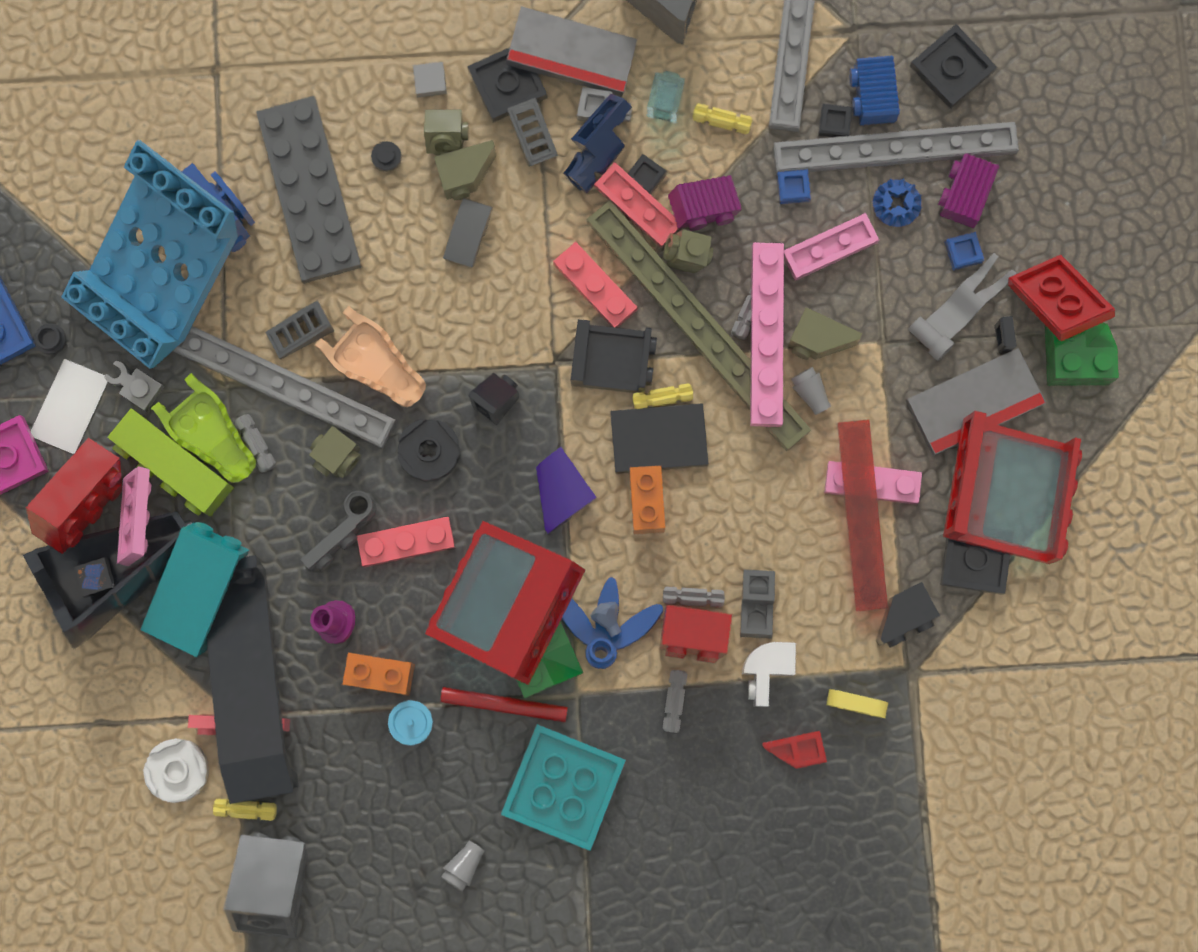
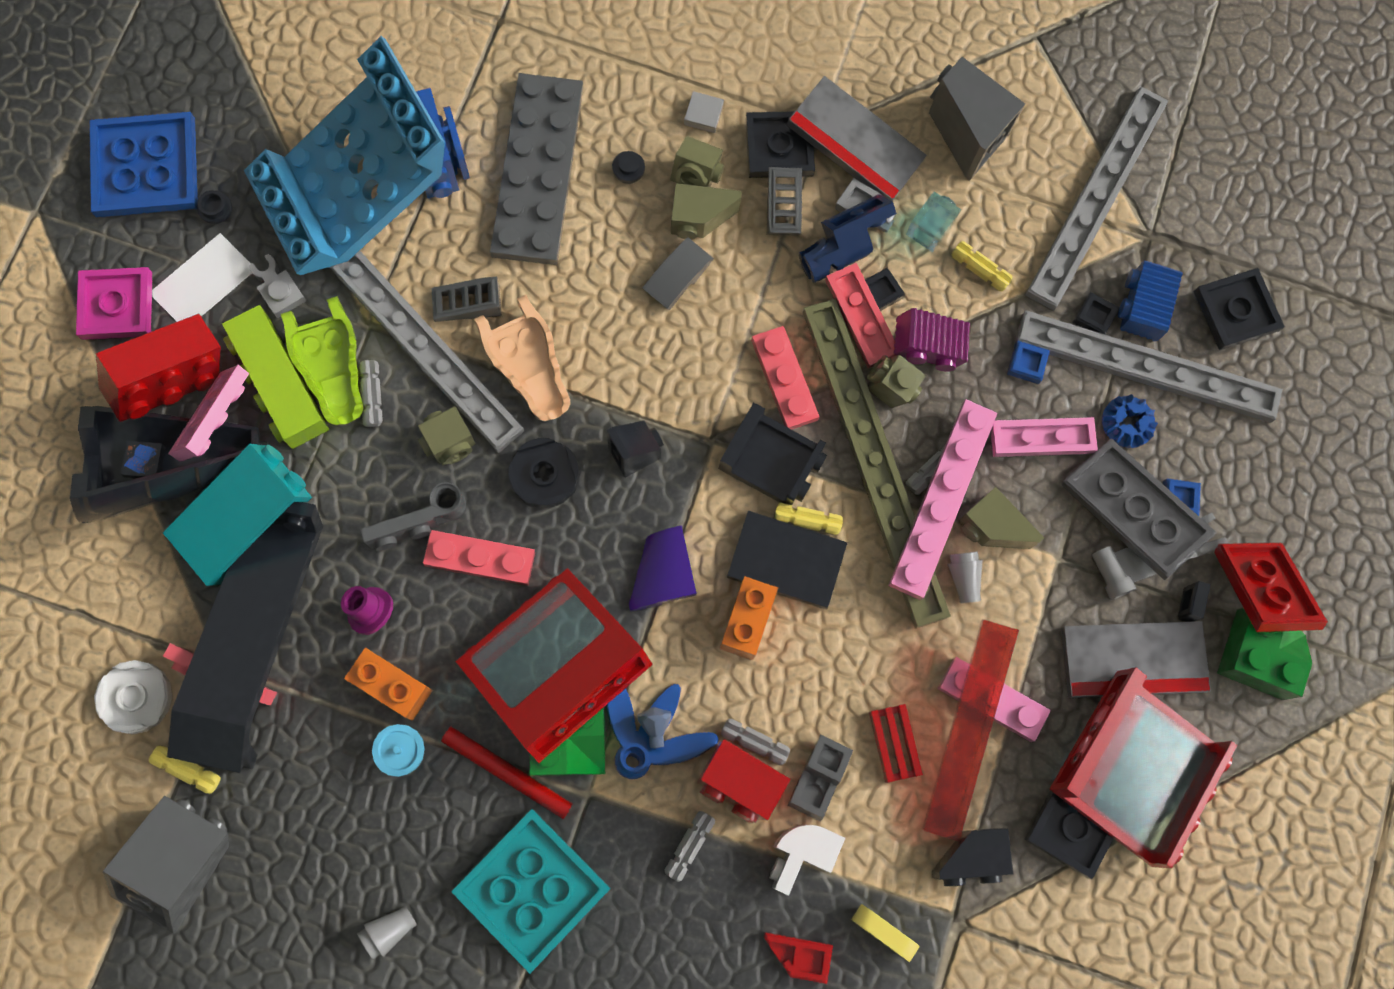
camera: 10 degrees right, 5 degrees down
(832, 566) = (908, 738): none -> red tile
(931, 275) = (1138, 509): none -> flat silver tile
(968, 190) = (1209, 438): magenta brick -> none

